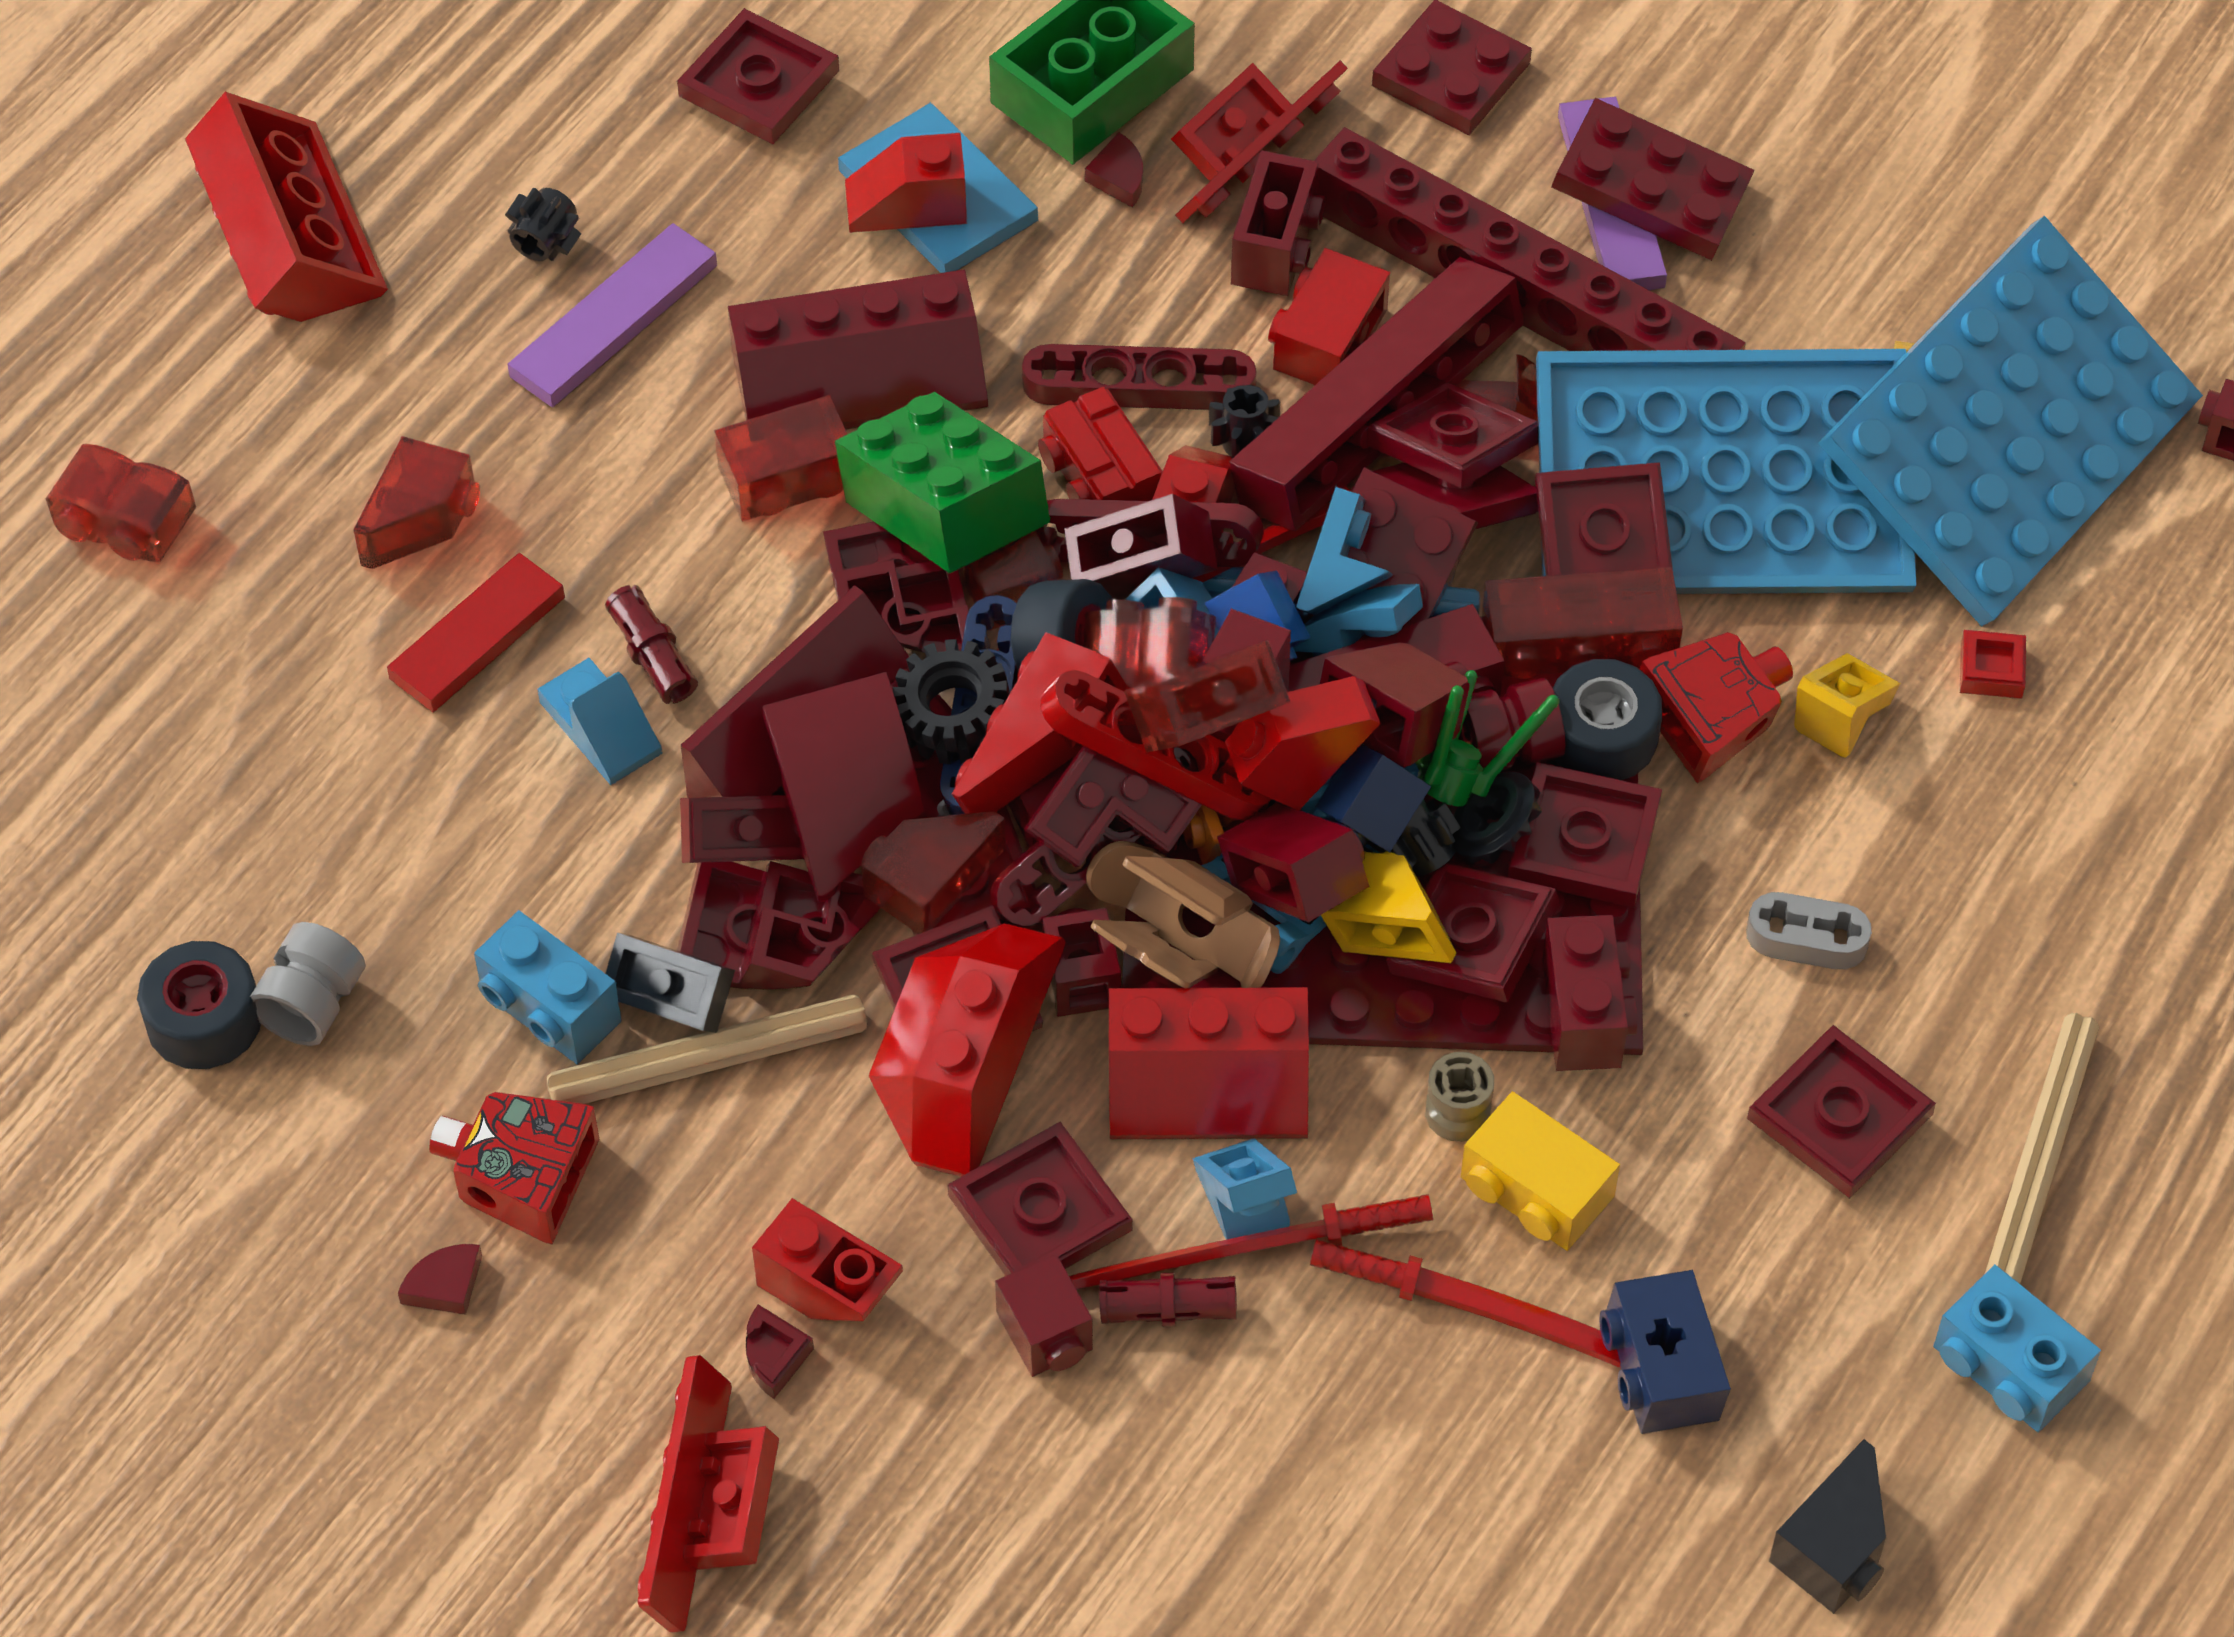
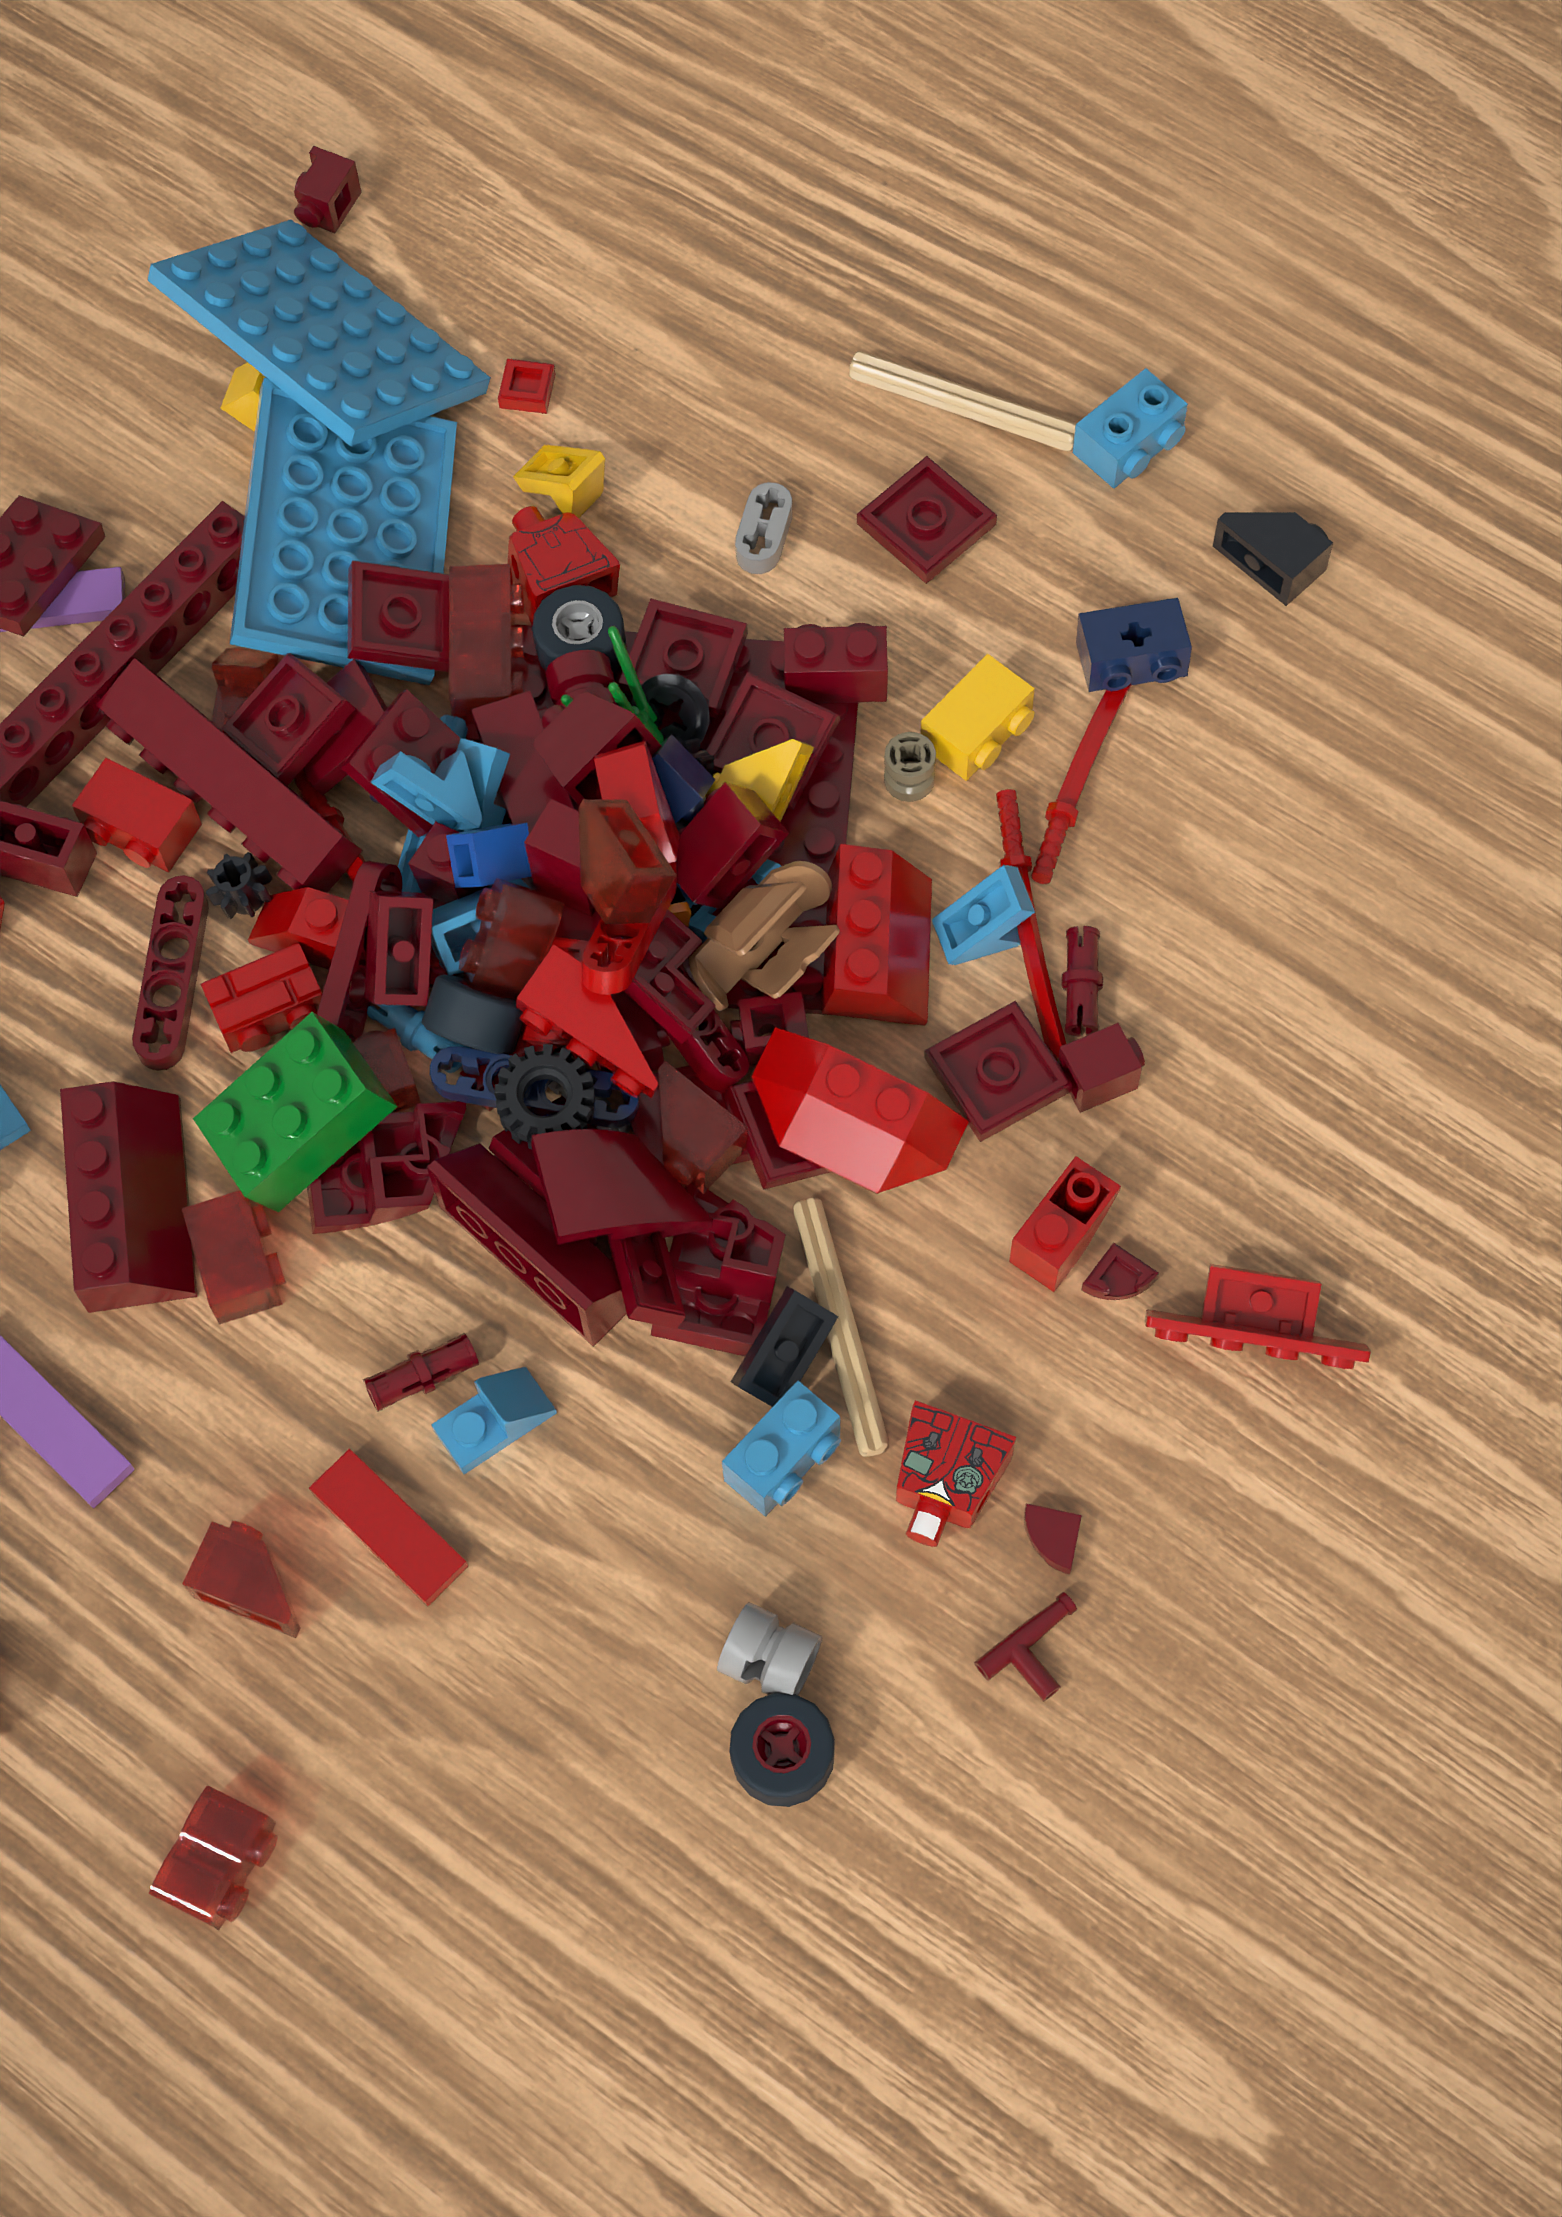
camera: 85 degrees left, 10 degrees up
(309, 1243) = (1016, 1649): none -> dark red piece

